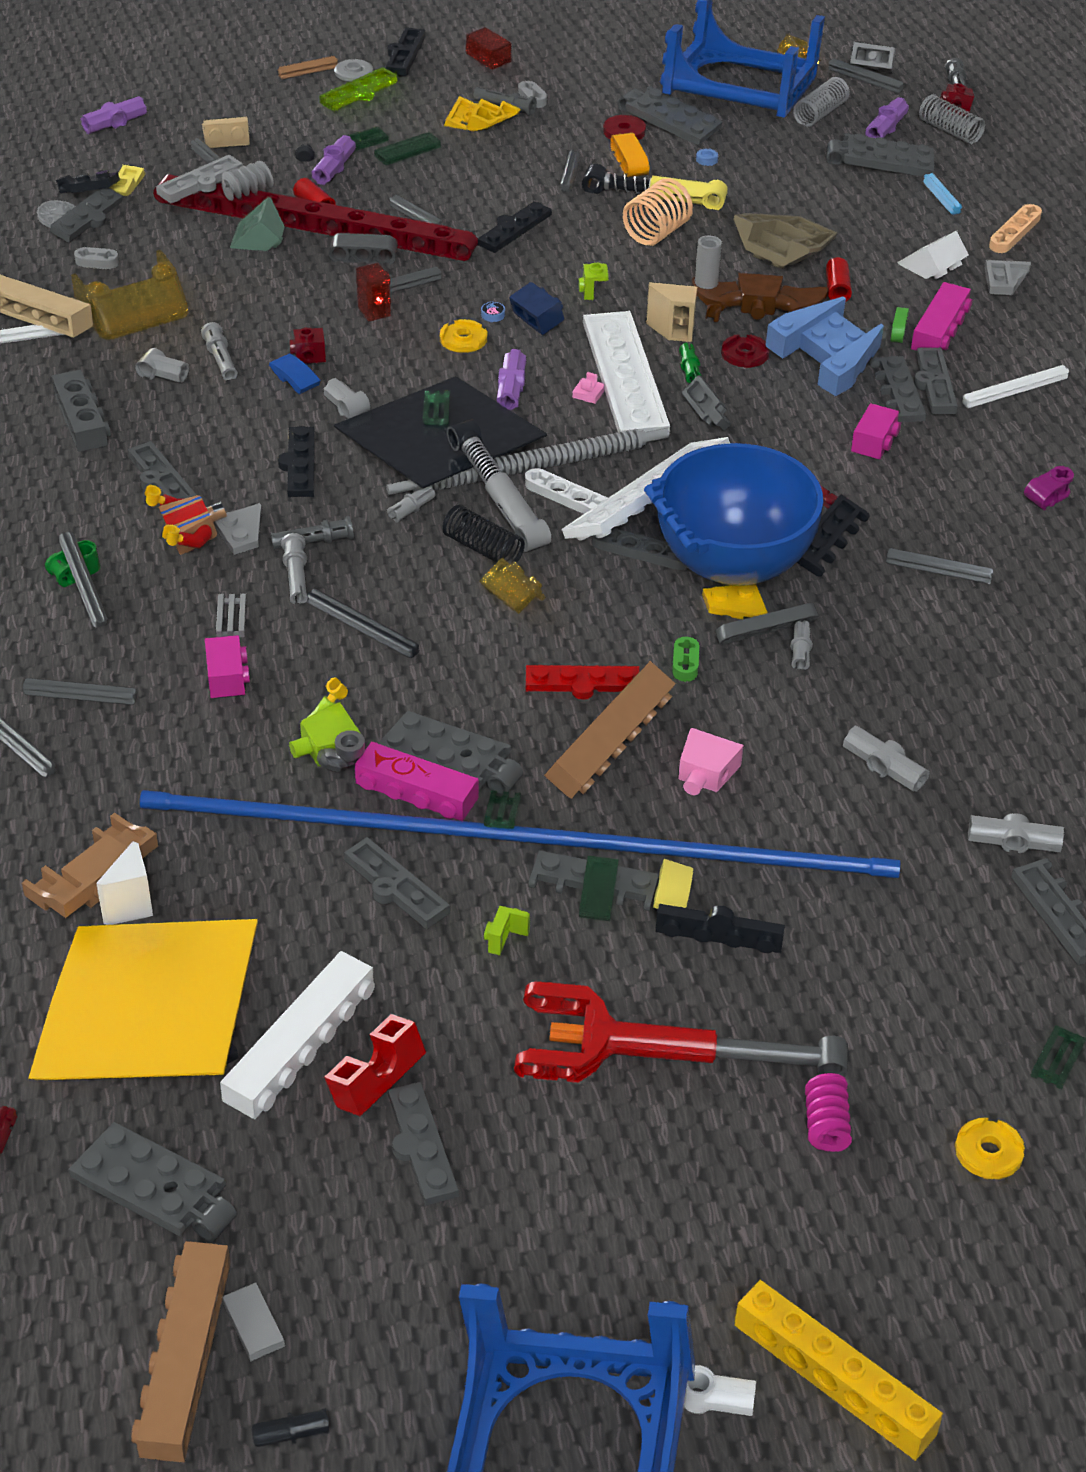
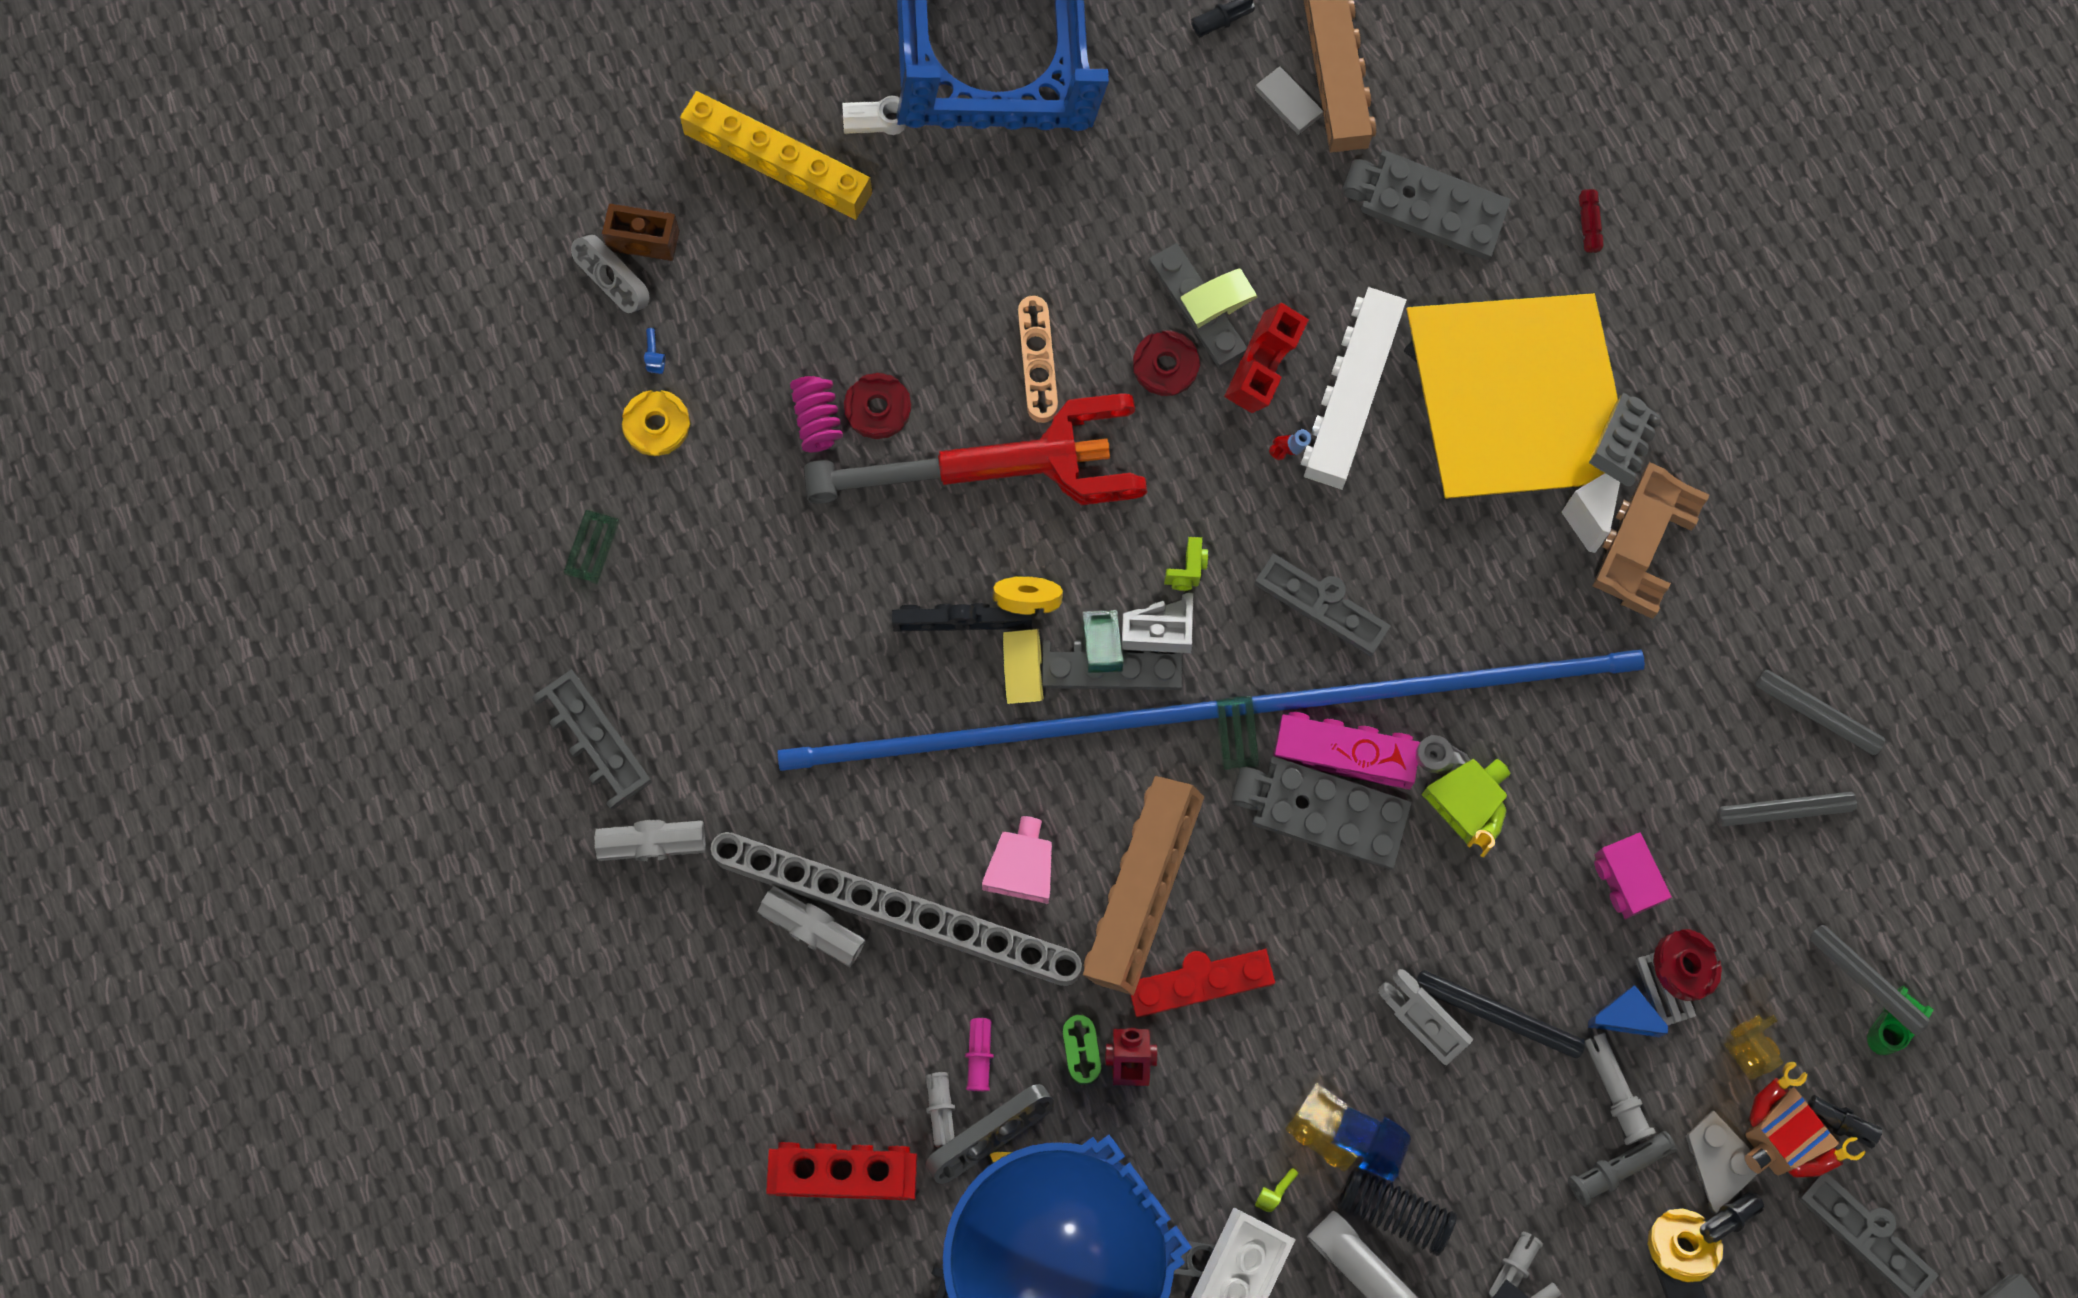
camera: 165 degrees right, 30 degrees up
(78, 921) = (1622, 440): none -> dark grey hinge
(134, 523) = (1845, 1122): none -> black pin
(186, 560) = (1753, 1050): none -> clear yellow bracket
(222, 614) = (1672, 973): none -> dark red tile
(252, 494) = (1732, 1217): none -> black axle
(270, 600) = (1631, 1015): none -> blue slope
(299, 498) = (1672, 1258): none -> yellow tile
(374, 1001) = (1289, 444): none -> arm
(395, 1128) = (1218, 296): none -> yellowish green slope
(421, 627) = (1425, 1017): none -> light grey hinge
(466, 1114) = (1162, 381): none -> dark red tile
(487, 561) = (1379, 1142): none -> clear blue brick
(545, 887) = (1160, 627): none -> light grey wing
(568, 562) = (1270, 1200): none -> lime hand
(596, 1126) = (1037, 359): none -> light nougat beam
(645, 938) = (1026, 594): none -> yellow tile
(646, 629) = (1131, 1056): none -> dark red brick
(764, 1135) = (877, 424): none -> dark red tile
(765, 667) = (979, 1055): none -> dark pink axle
(820, 756) = (882, 896): none -> light grey beam
(870, 622) = (898, 1185): none -> red brick
(988, 1201) = (654, 361): none -> blue hand
(994, 1312) = (640, 232): none -> reddish brown brick
(1030, 1288) = (594, 257): none -> light grey beam

